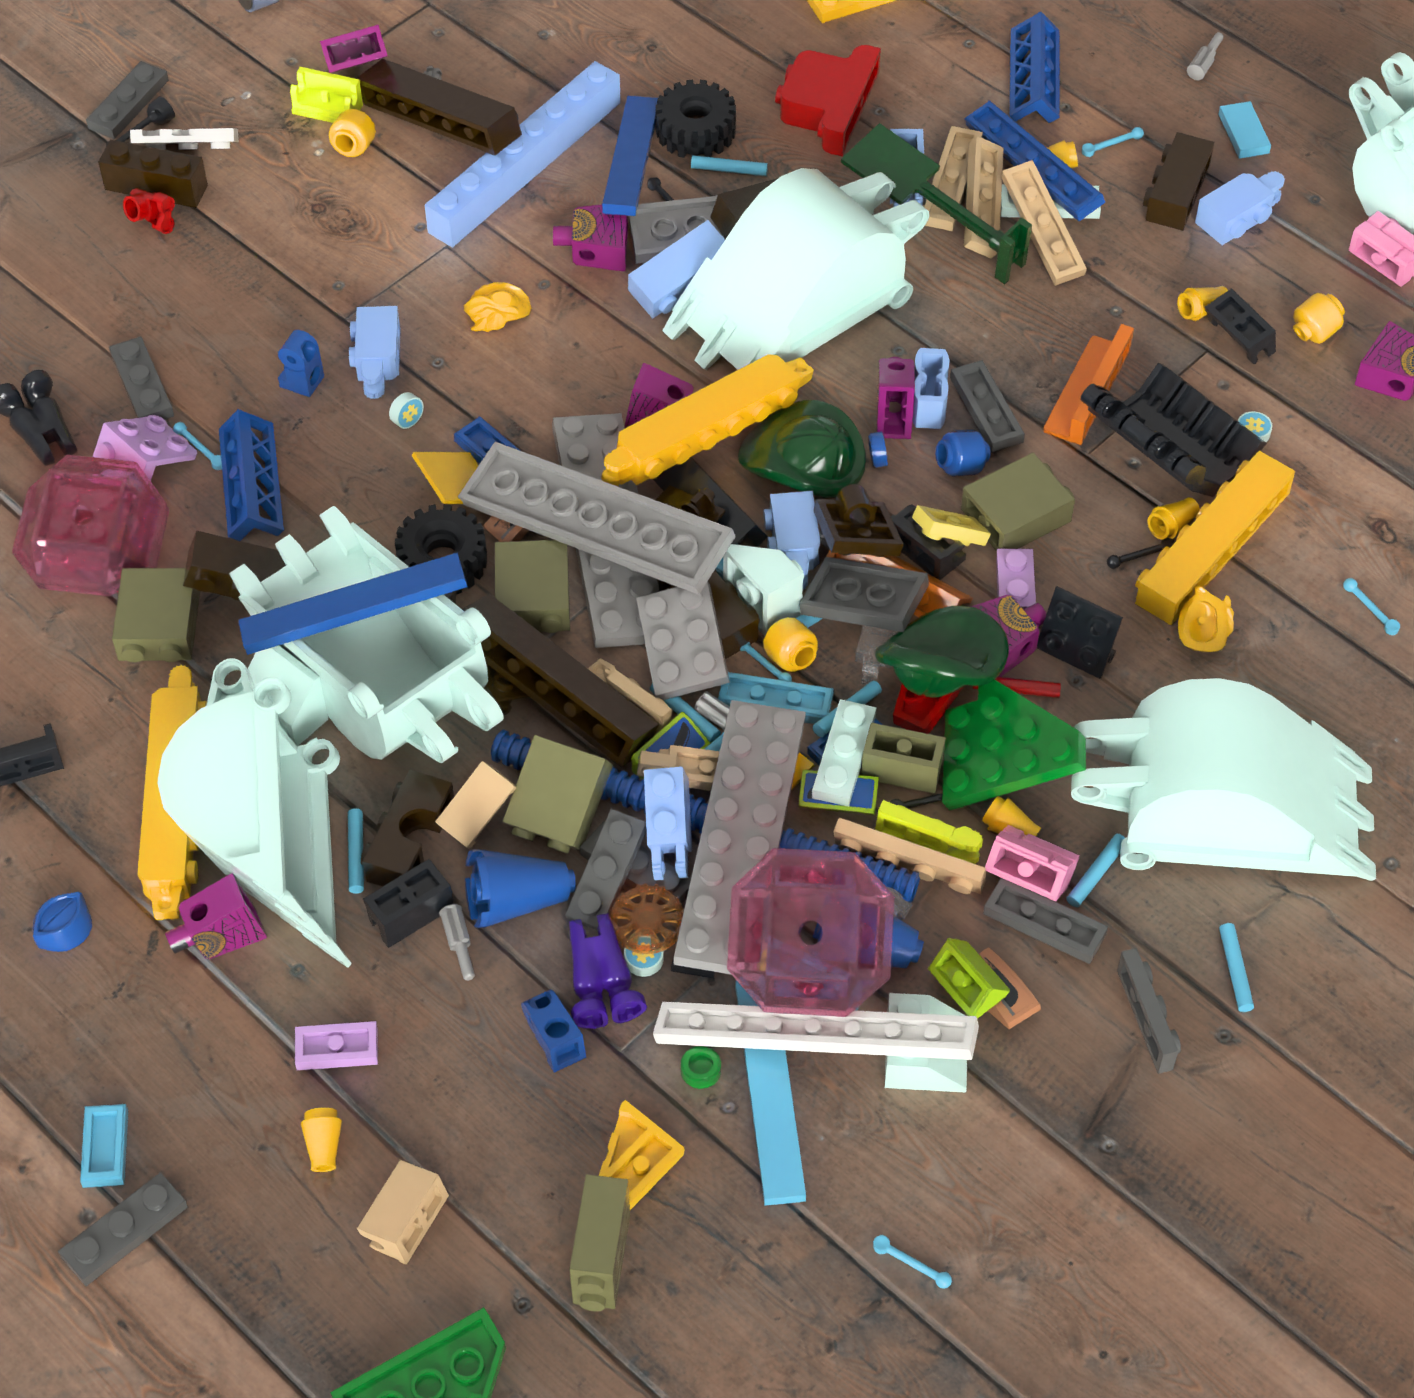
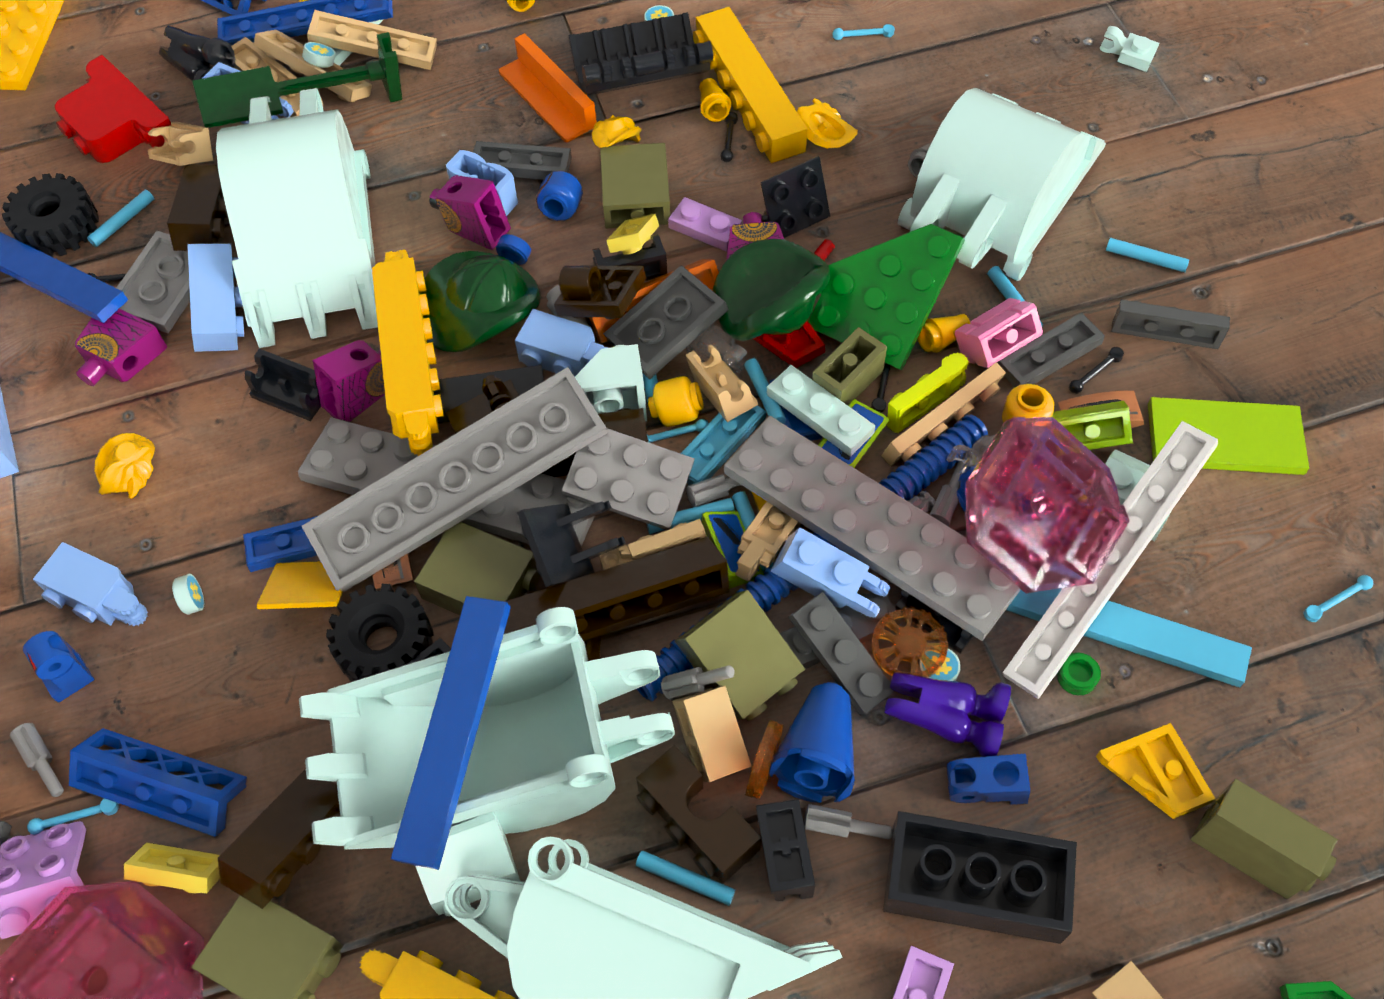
camera: 60 degrees left, 5 degrees up
(187, 517) = (173, 868): none -> light yellow plate
(230, 396) = (36, 755): none -> light grey axle
(456, 1045) = (981, 877): none -> black brick
(473, 838) = (763, 759): none -> clear orange wheel
(509, 765) = (693, 681): none -> light grey axle
(580, 617) = (556, 543): none -> black plate
(627, 362) = (284, 385): none -> black hinge
(823, 158) = (182, 144): none -> tan hinge
(827, 666) = (721, 385): none -> tan hinge
(934, 111) = (195, 53): none -> black piece
(952, 916) = (1028, 402): none -> yellow head
(992, 193) = (318, 54): none -> light aqua tile
(1045, 1109) = (1248, 434): none -> lime tile
(1065, 455) = (615, 130): none -> yellow hat
(1086, 981) = (1115, 355): none -> black hinge

